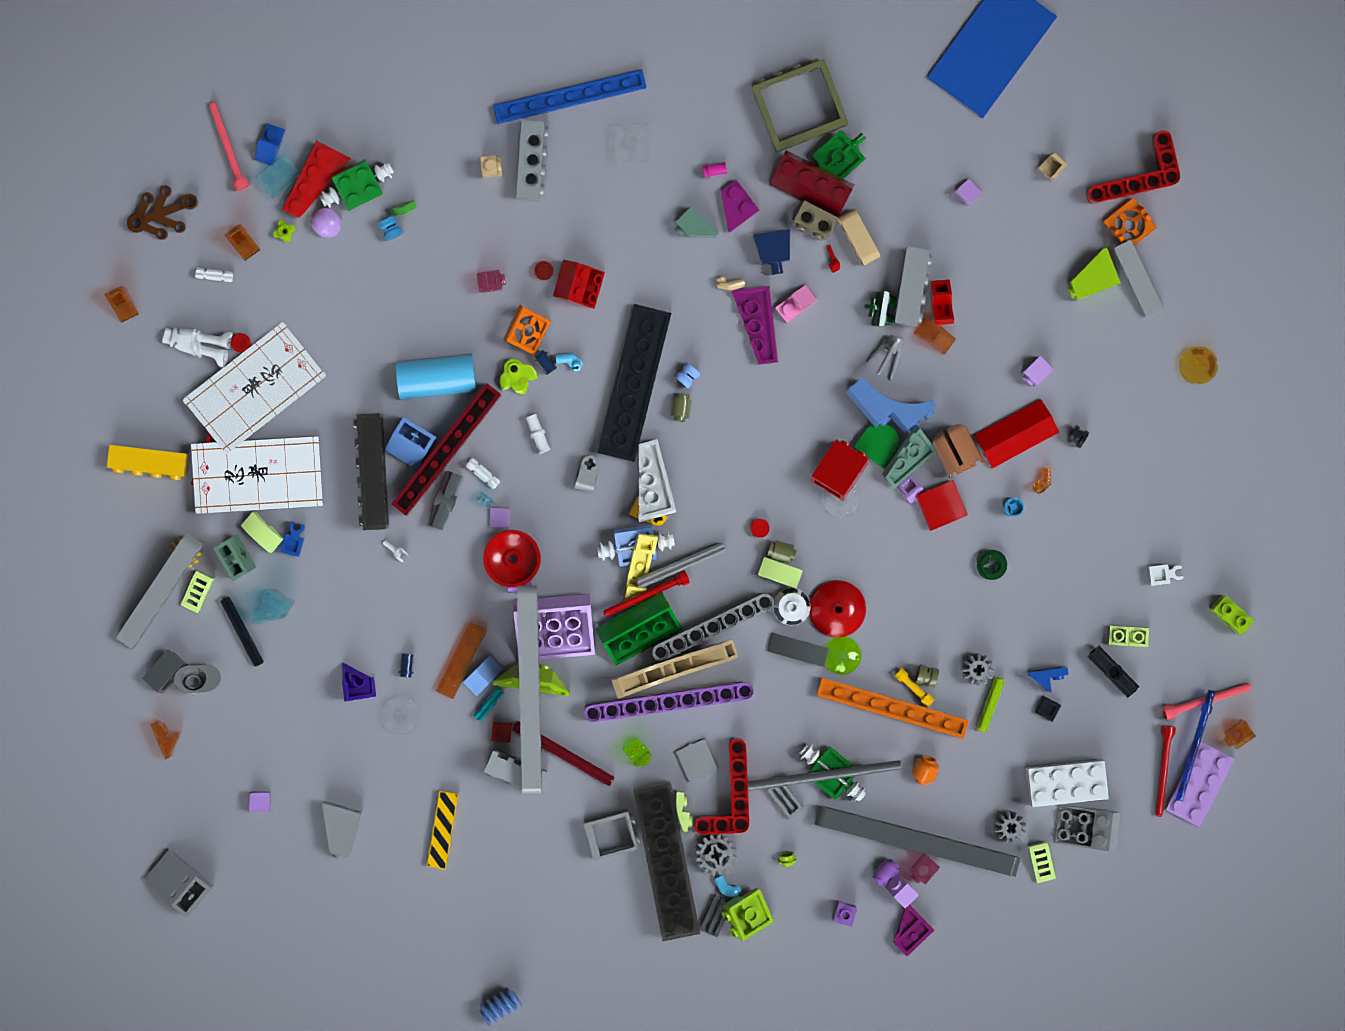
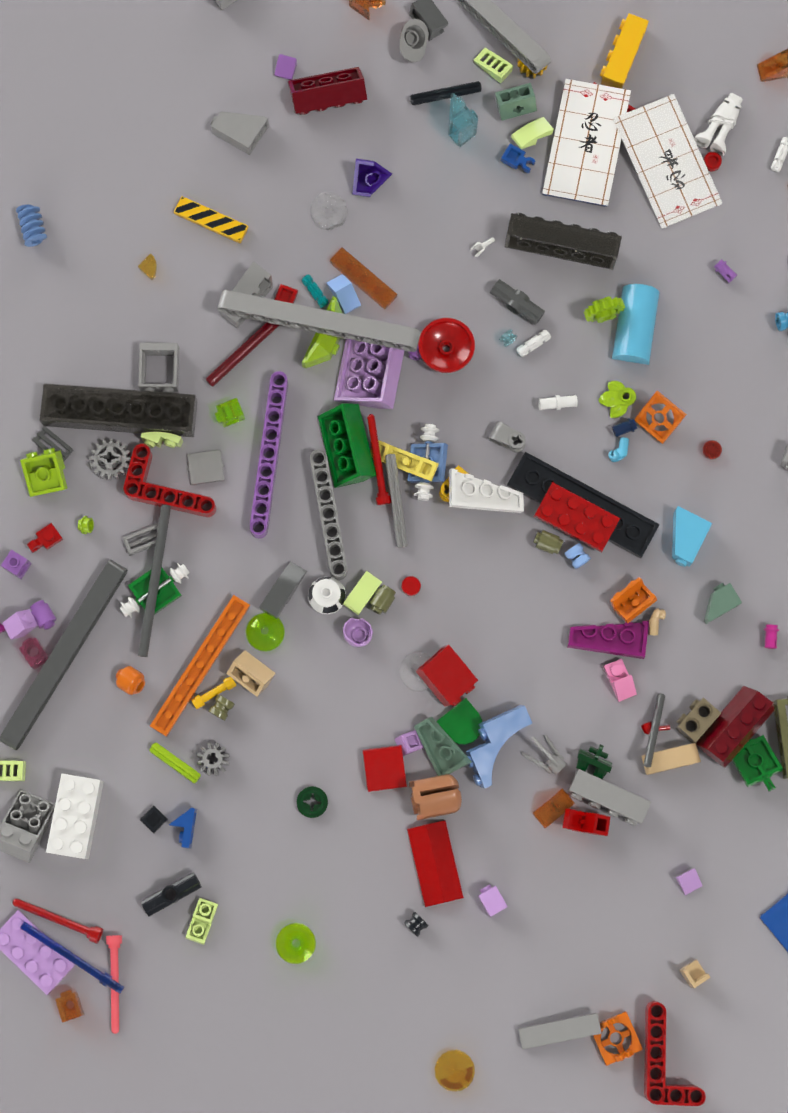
camera: 105 degrees right, 10 degrees down
(273, 752) = (327, 90): none -> dark red slope
(355, 301) = (725, 270): none -> medium lavender pin
(406, 665) = (372, 227): dark blue pin -> none
(410, 443) = (580, 284): medium blue slope -> none
(433, 412) = (604, 309): none -> lime gear
(446, 449) = (565, 314): dark red brick -> none
(490, 281) = (714, 397): clear pink brick -> none
(499, 517) = (487, 348): lavender slope -> none
(508, 876) = (149, 266): none -> clear yellow tile
(578, 284) = (691, 478): red slope -> none
(638, 273) = (688, 536): none -> medium azure slope
(650, 385) = (577, 517): none -> red plate
(674, 667) = (299, 462): tan arch -> none
(716, 311) = (632, 600): none -> orange bracket
(728, 890) = (74, 460): medium azure arm -> none
(737, 205) = (730, 649): magenta wing -> none
(773, 249) = (679, 672): dark blue torso -> none
(809, 892) = (46, 537): none -> red plate
(820, 566) = (357, 632): none -> lavender hair
(823, 608) = (312, 653): red dish -> none
(837, 259) = (654, 730): none -> dark grey bar
(888, 657) = (251, 673): none -> tan brick
(1015, 505) = (363, 838): dark azure wheel -> none
(1017, 827) = (52, 741): light grey gear -> none
(1044, 483) = (379, 878): clear orange arm -> none
(1094, 277) = (571, 985): lime slope -> none
(1135, 545) = (295, 954): none -> clear neon green dish
(1161, 574) = (253, 971): white plate -> none
(1231, 614) = (192, 1032): lime brick -> none

